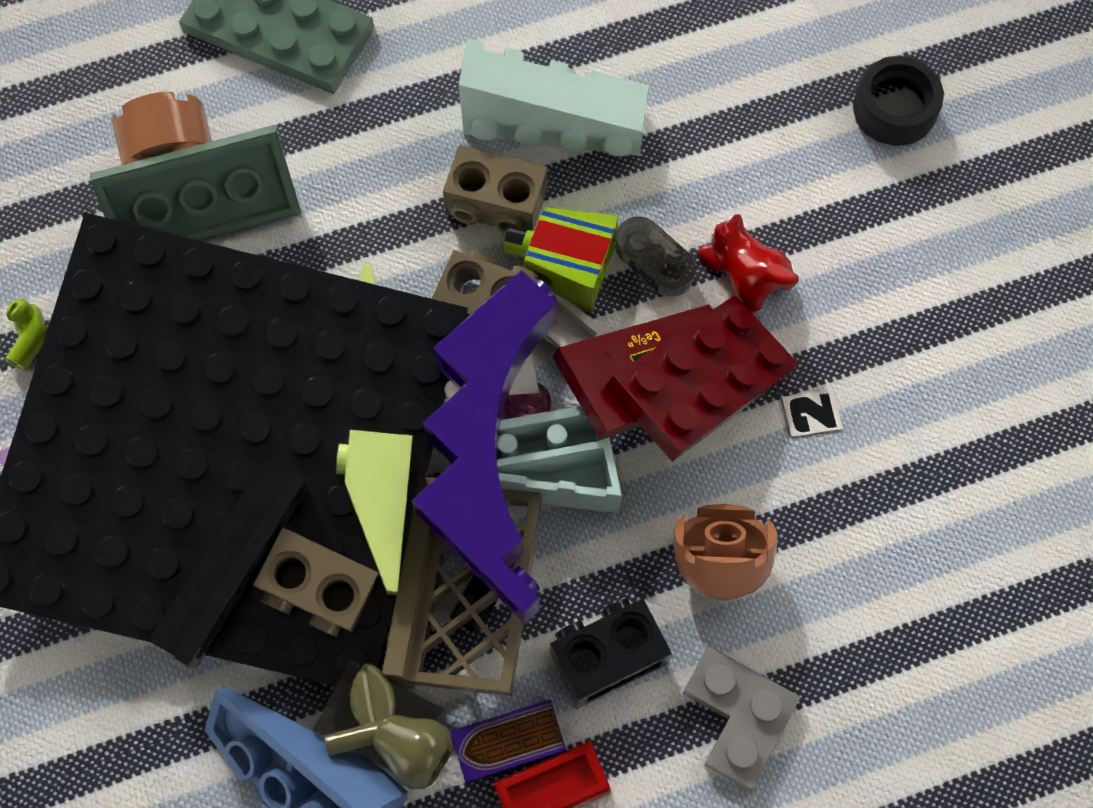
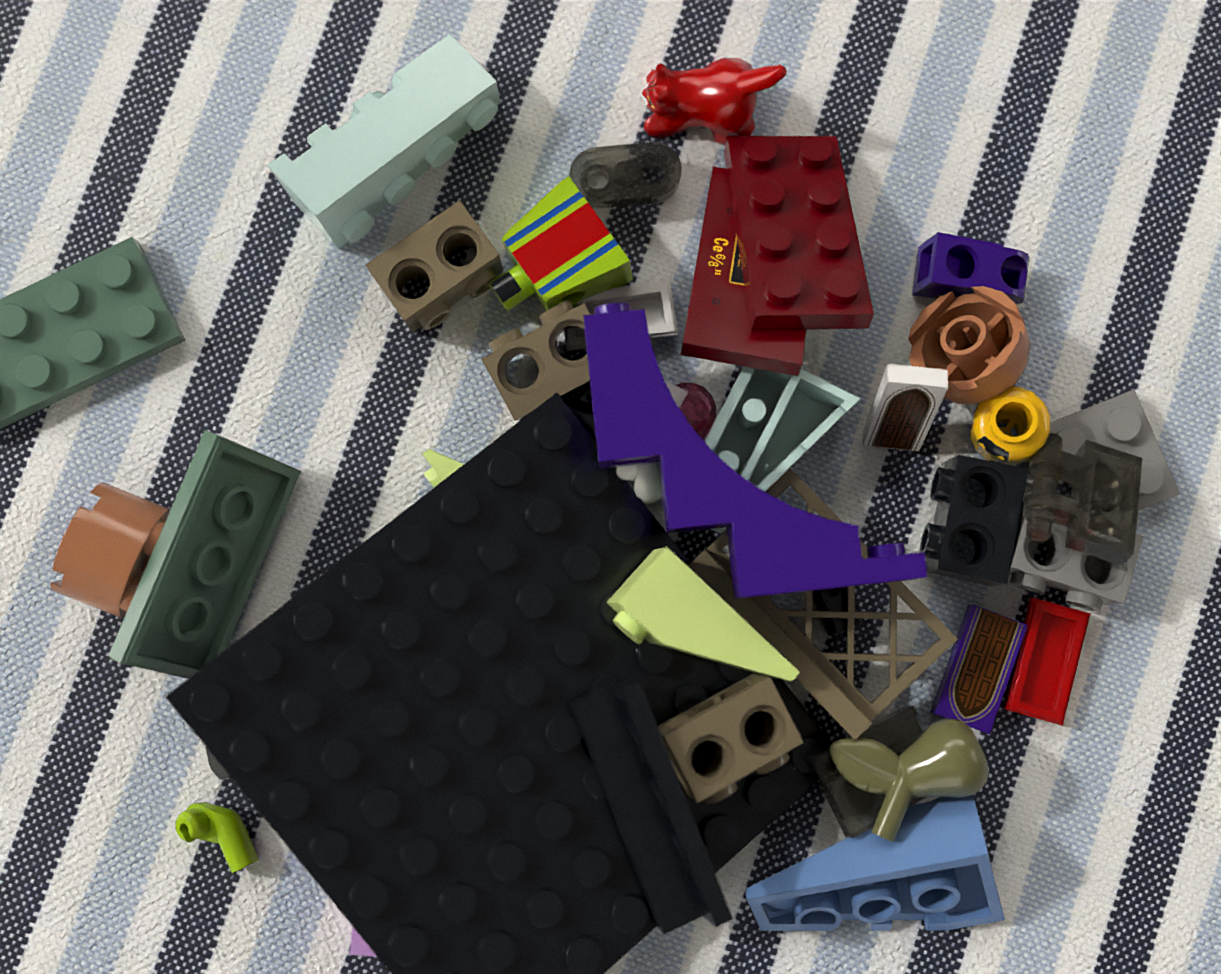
camera: 55 degrees left, 15 degrees up
(644, 535) = (904, 407): none -> tile
(651, 734) = (1066, 571): none -> light grey brick
(683, 718) = (1102, 500): none -> clear smoke plate
(694, 622) = (1019, 410): none -> yellow head
(783, 504) = (958, 263): none -> dark purple leg
(812, 413) = (883, 163): sticker -> none

